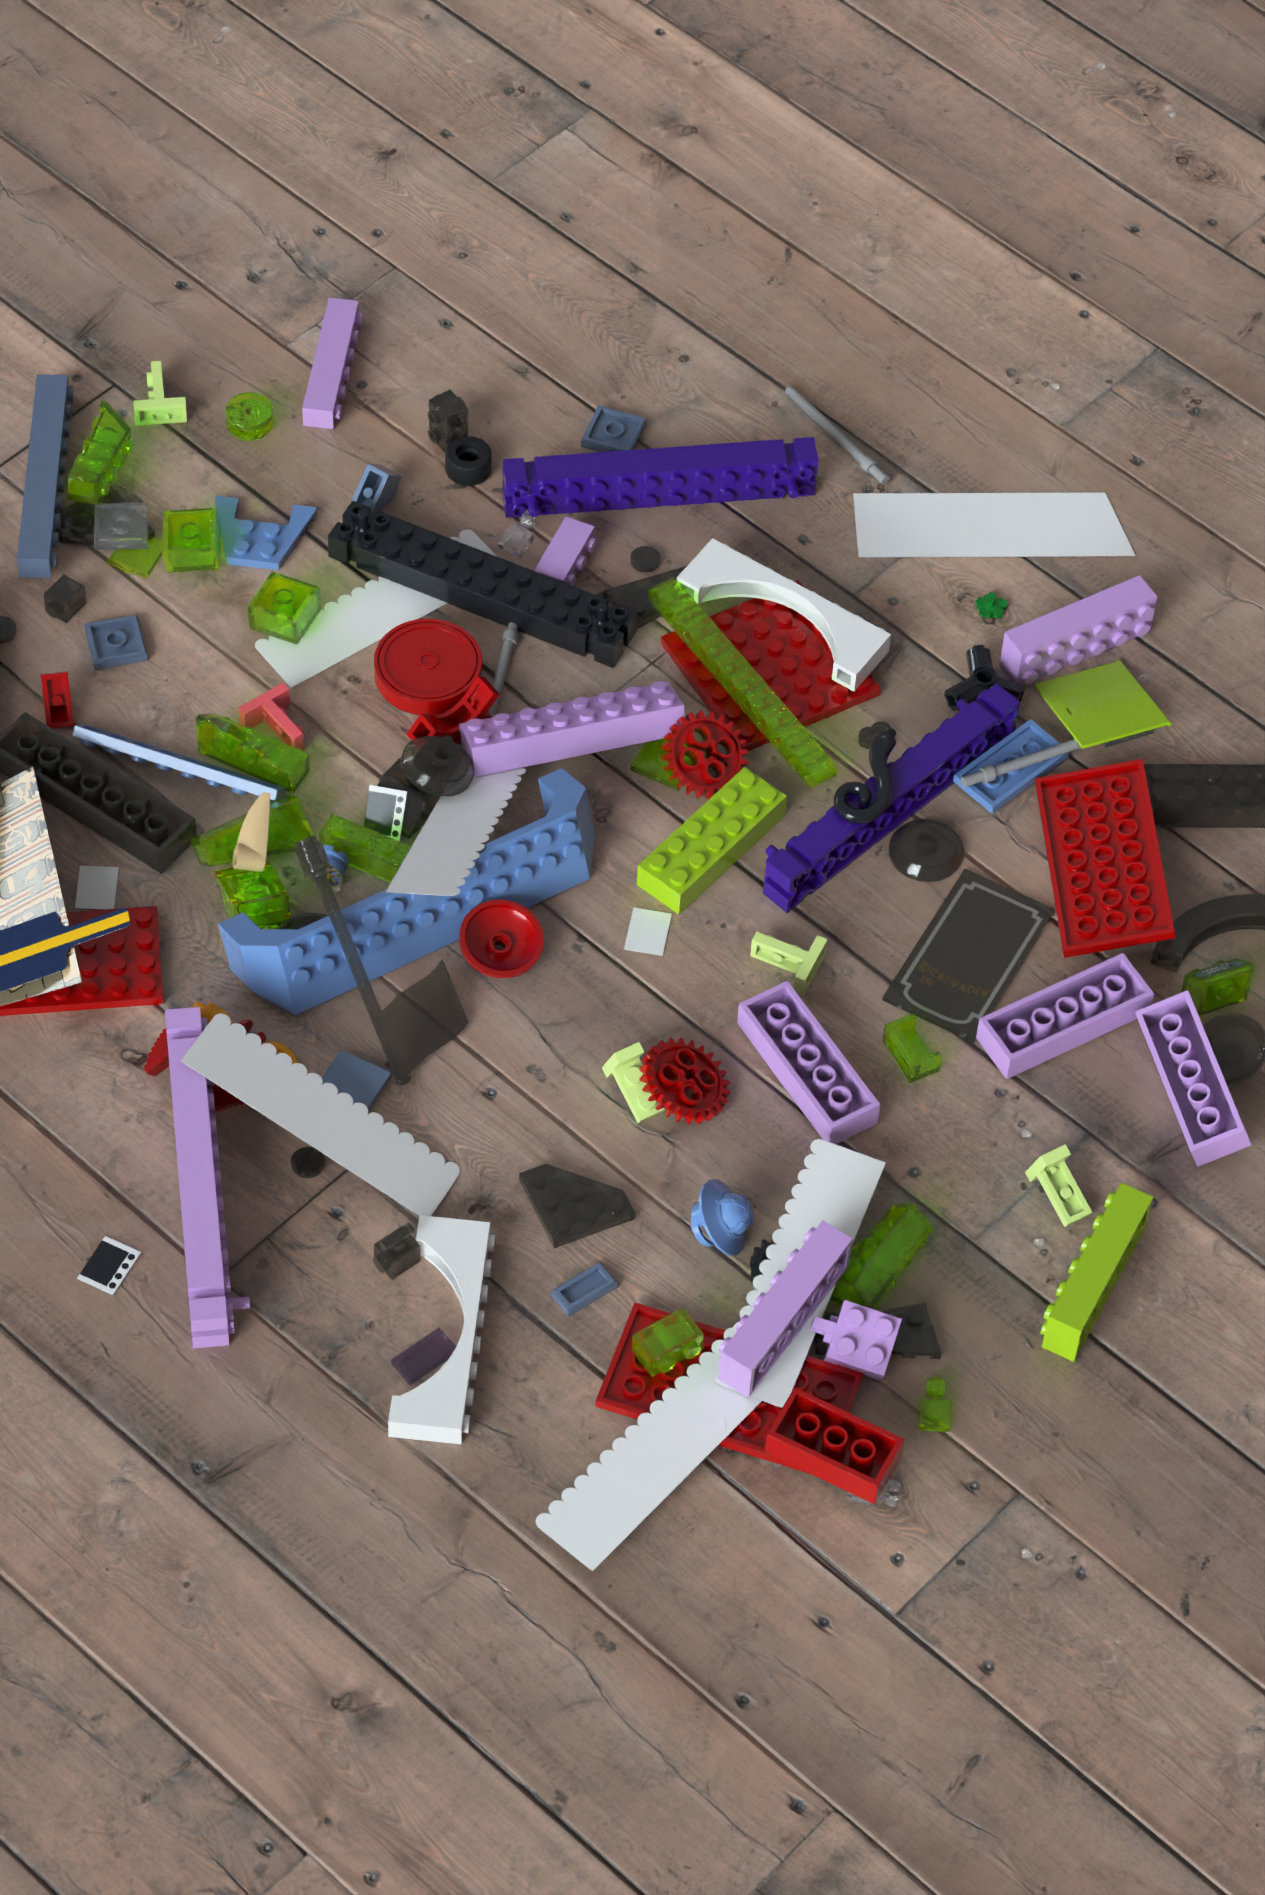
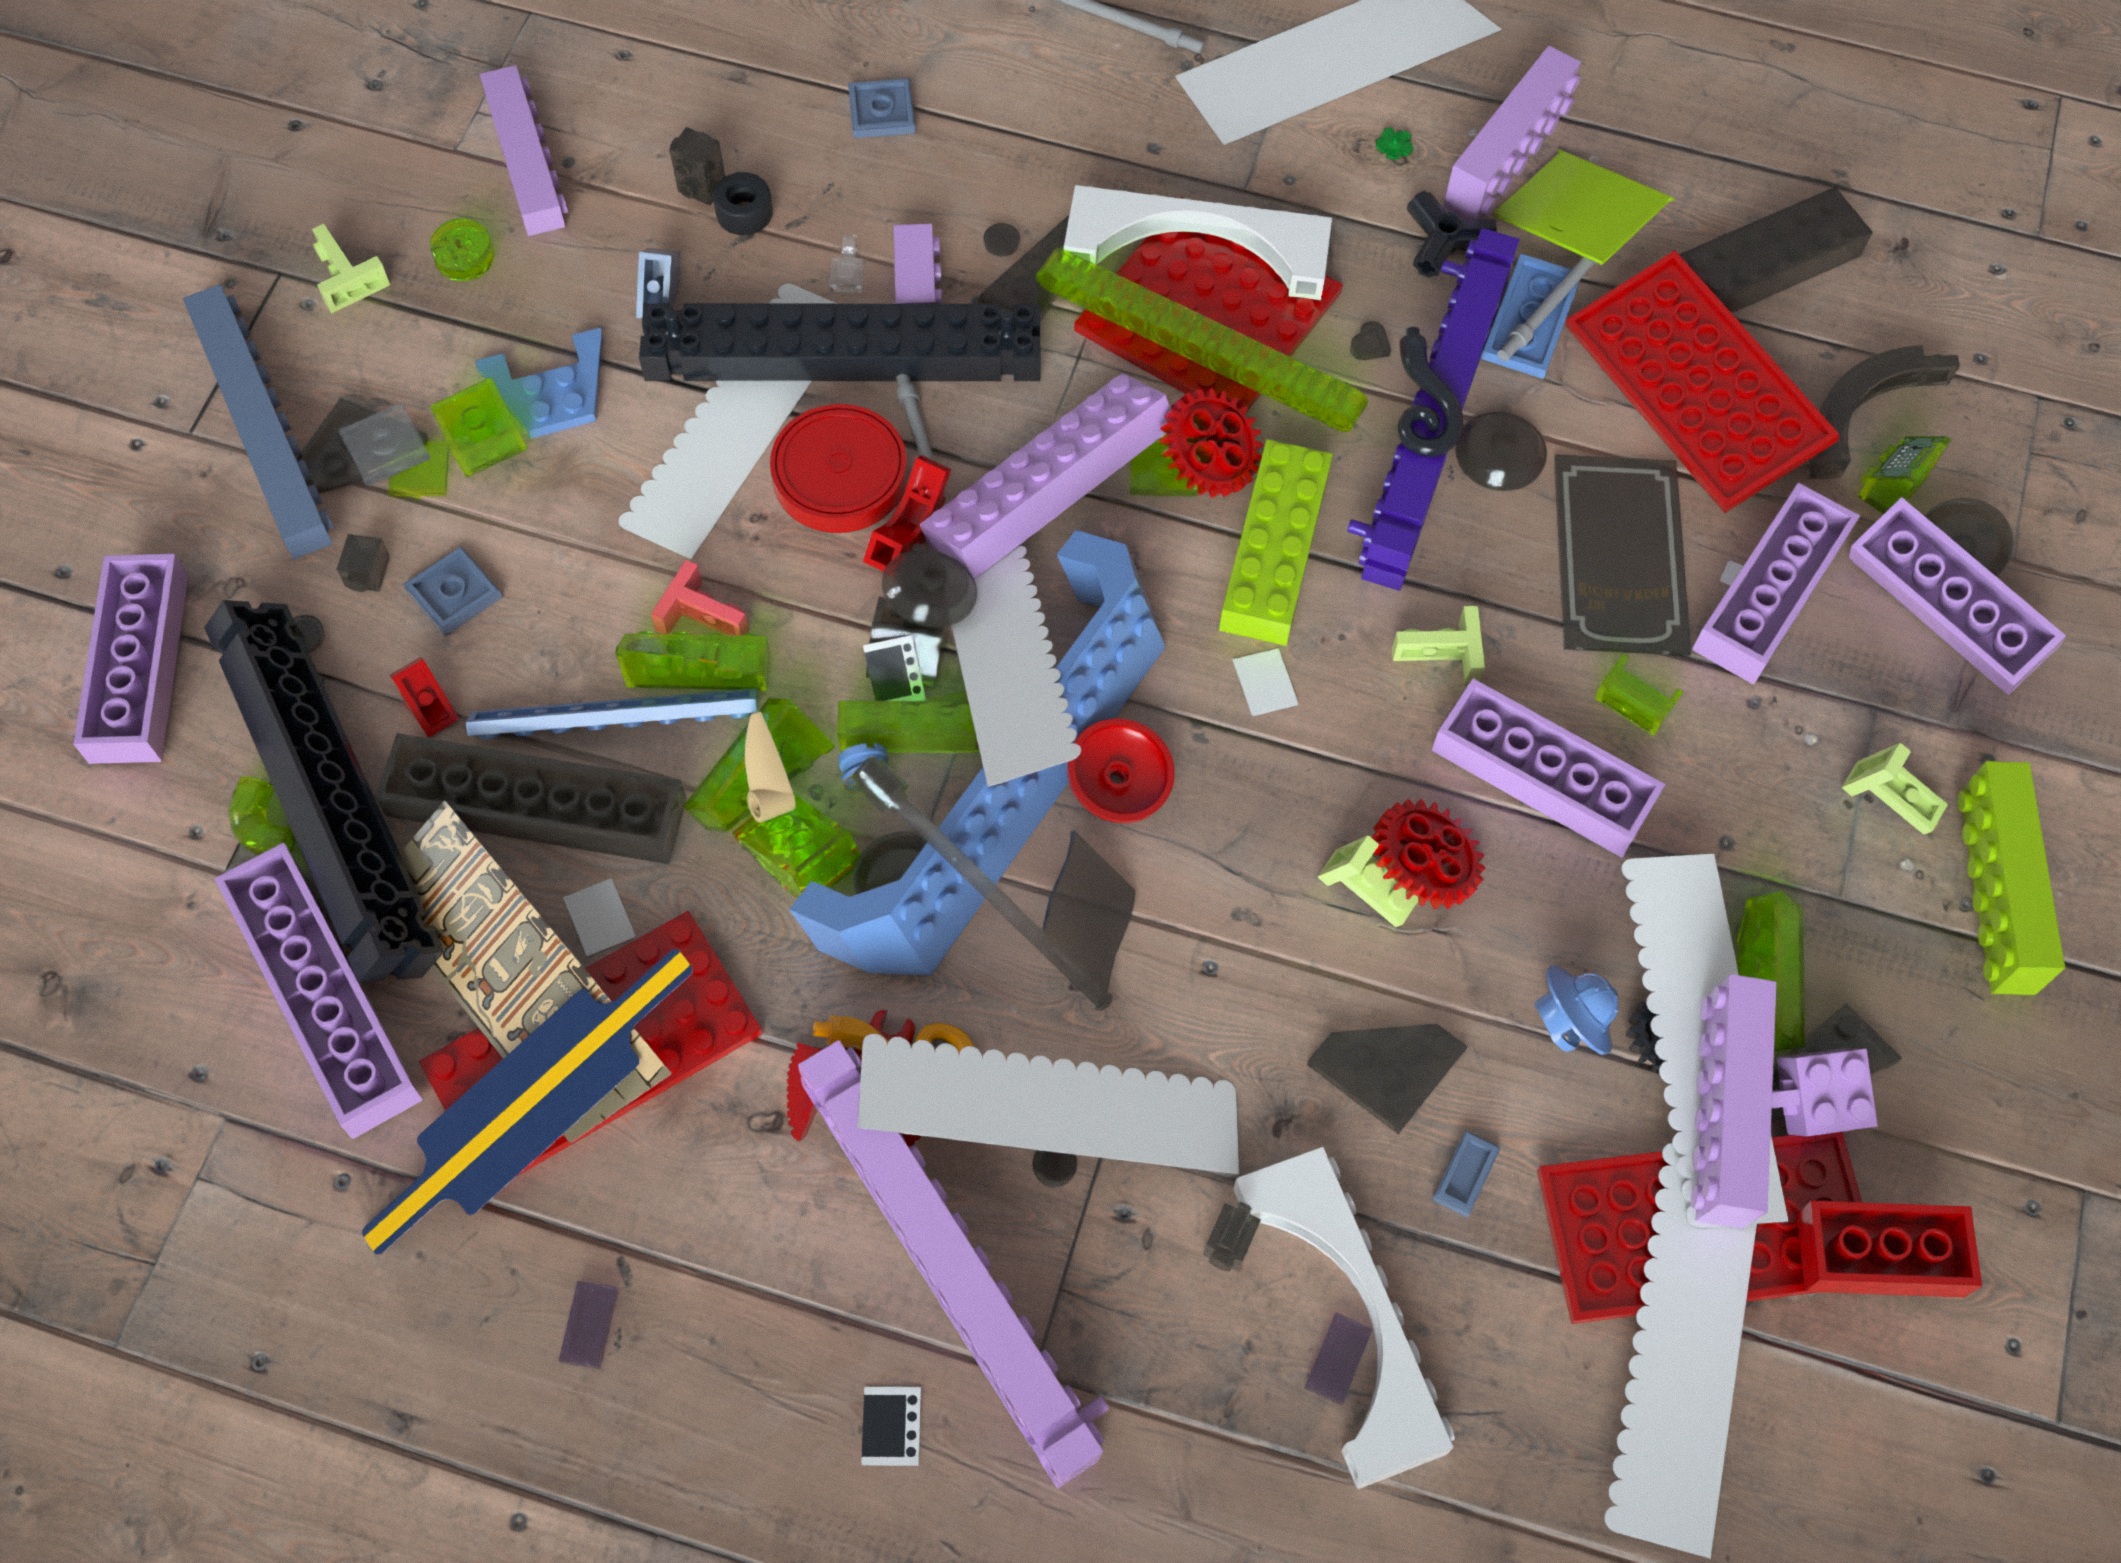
camera: 25 degrees left, 10 degrees up
(101, 457) = (316, 370): clear neon green wedge -> none
(284, 607) = (634, 465): clear neon green brick -> none
(357, 1078) = (1049, 1028): sand blue tile -> none
(659, 477) = (966, 140): dark purple brick -> none
(667, 1342) = (1618, 1206): clear neon green brick -> none
(934, 1412) = (1937, 1137): clear neon green plate -> none

